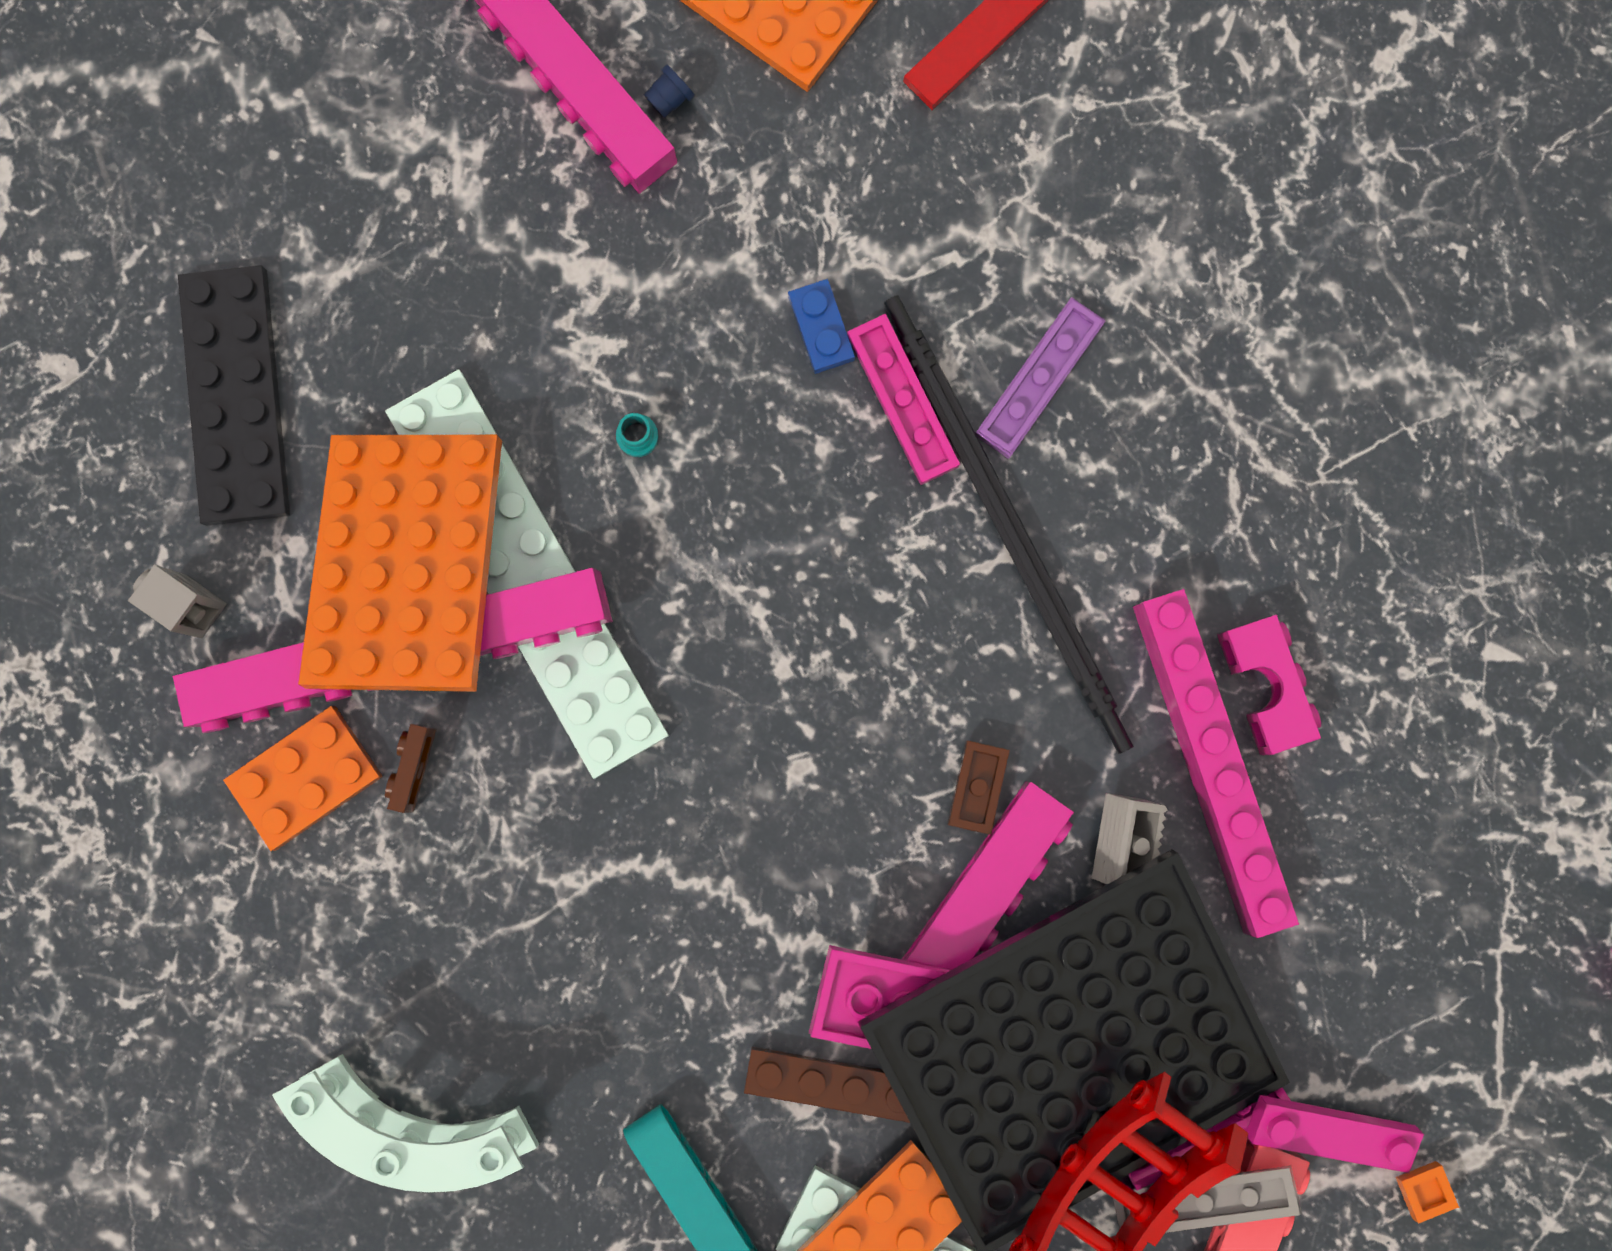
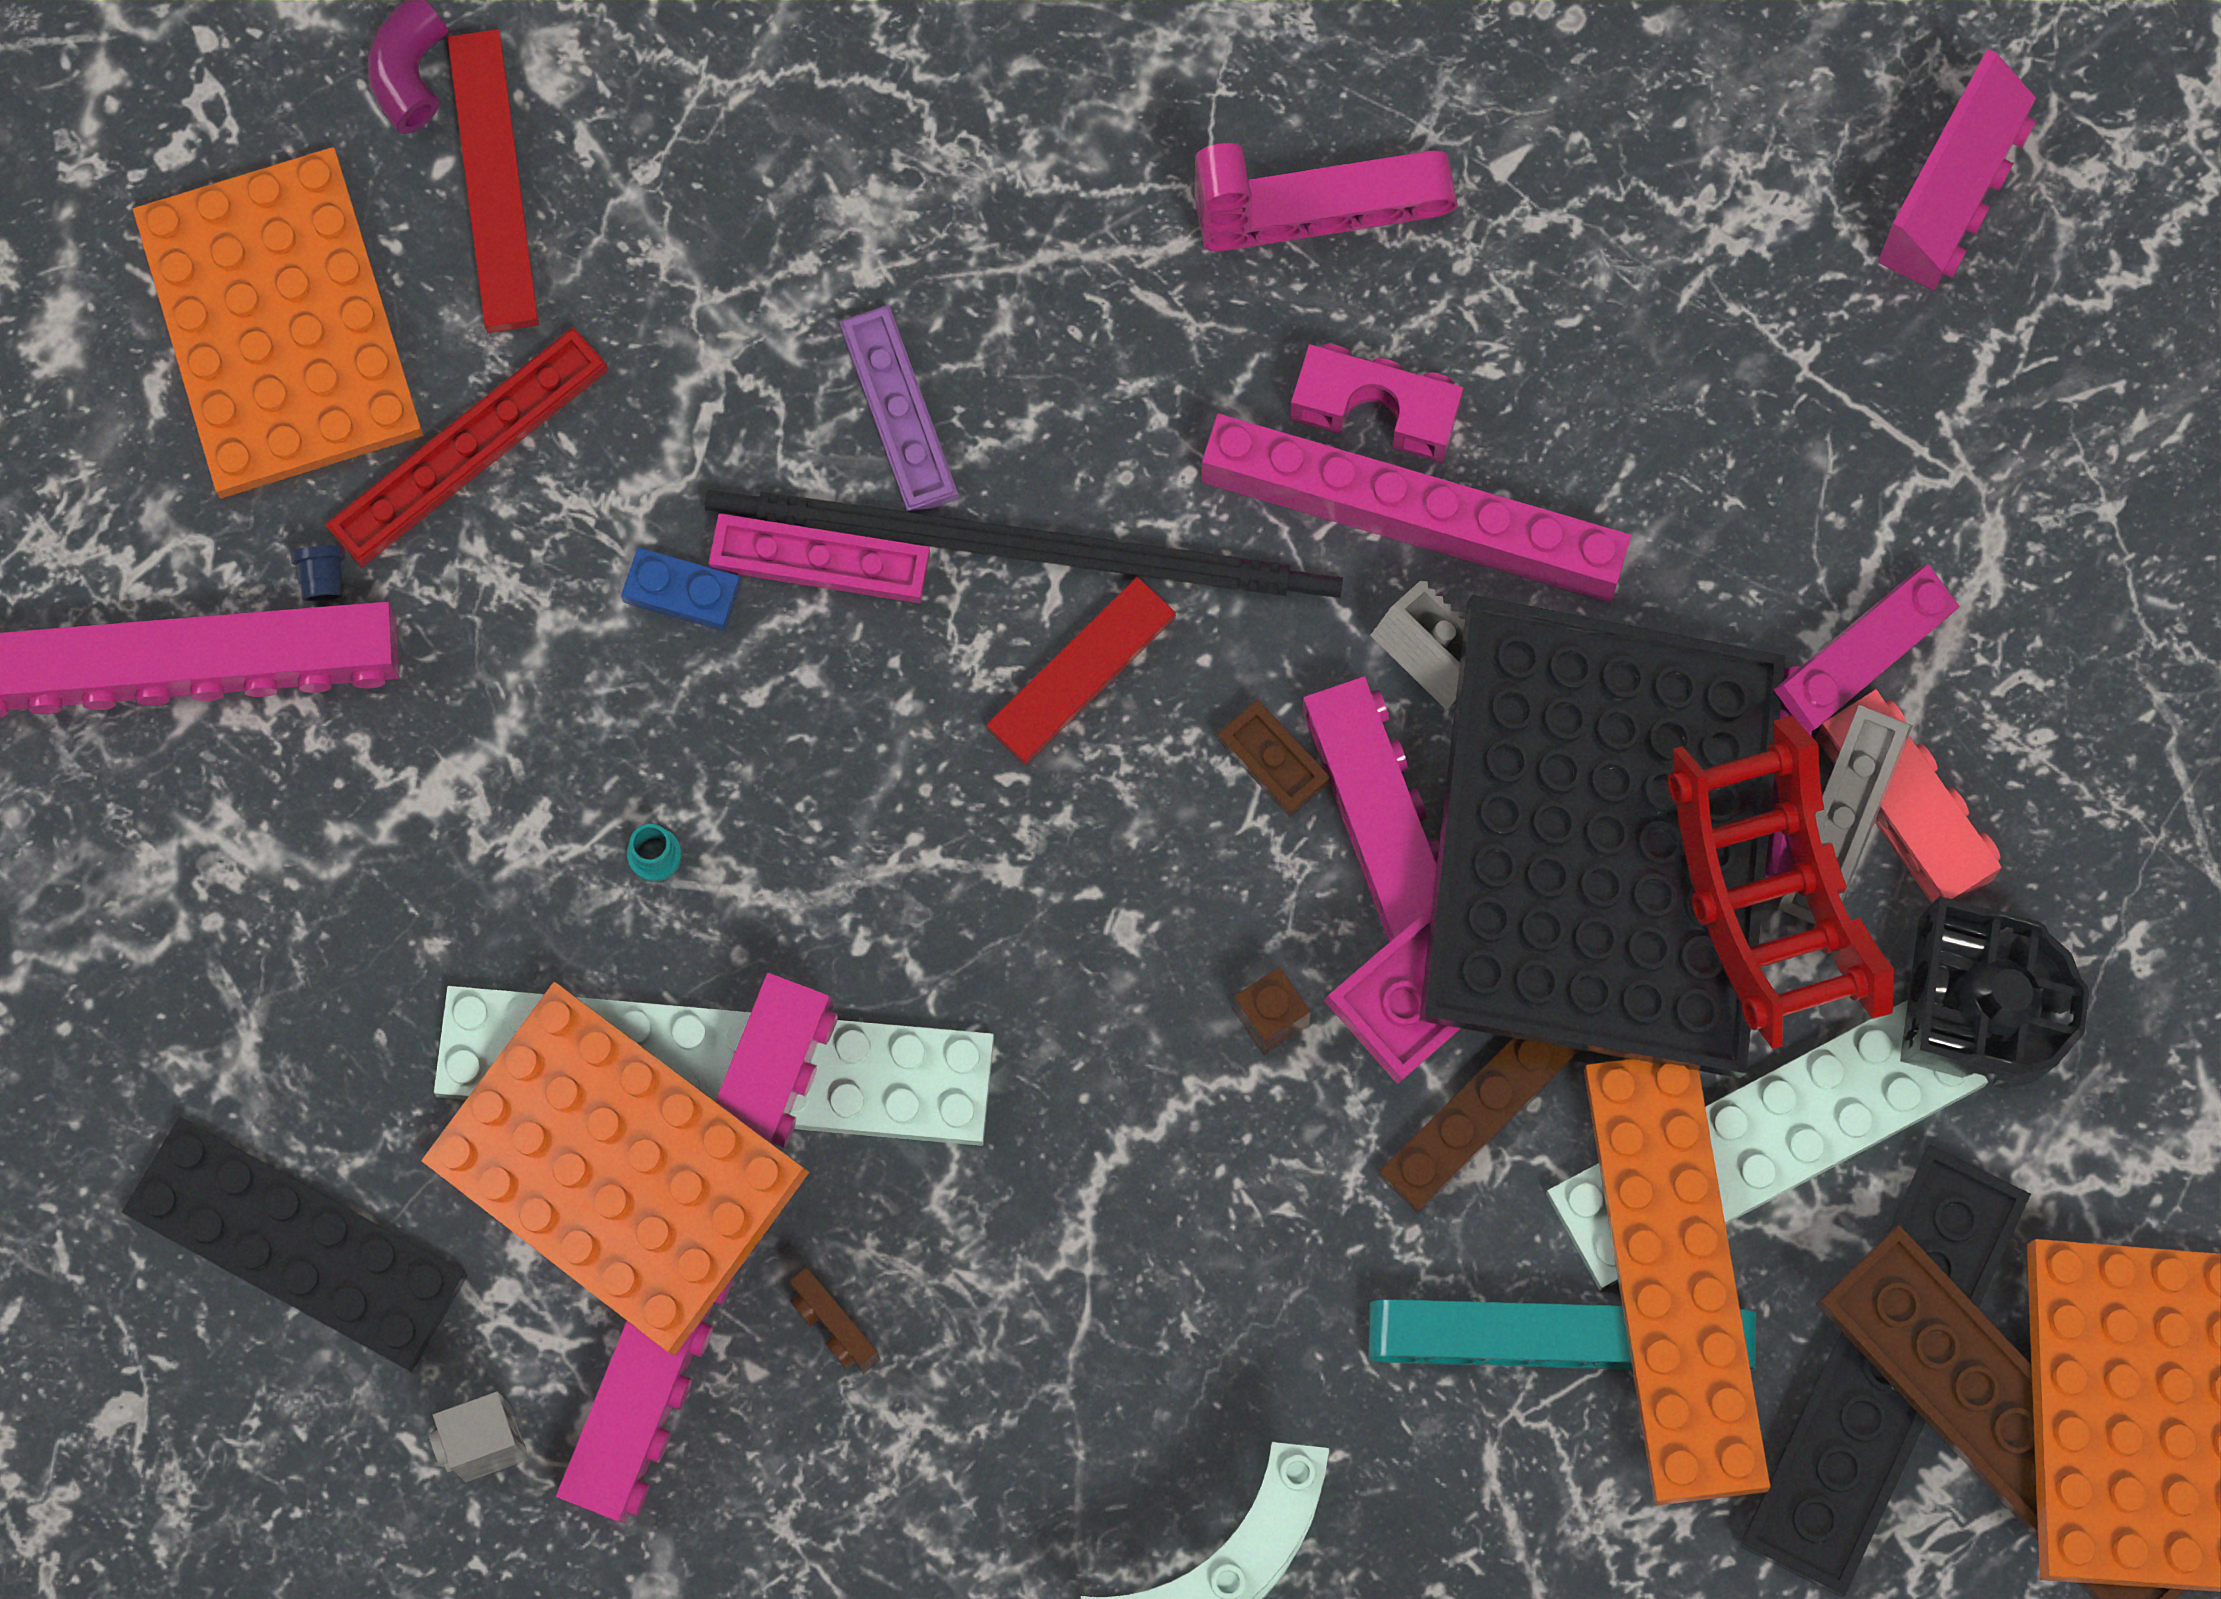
camera: 50 degrees left, 10 degrees down
(302, 778) = (760, 1448): orange plate -> none
(807, 907) = (1271, 1010): none -> reddish brown brick
(818, 124) = (466, 447): none -> red tile
(949, 620) = (1081, 671): none -> red tile
(1339, 508) = (1315, 201): none -> dark pink beam
(1427, 1192) = (1990, 602): orange plate -> none

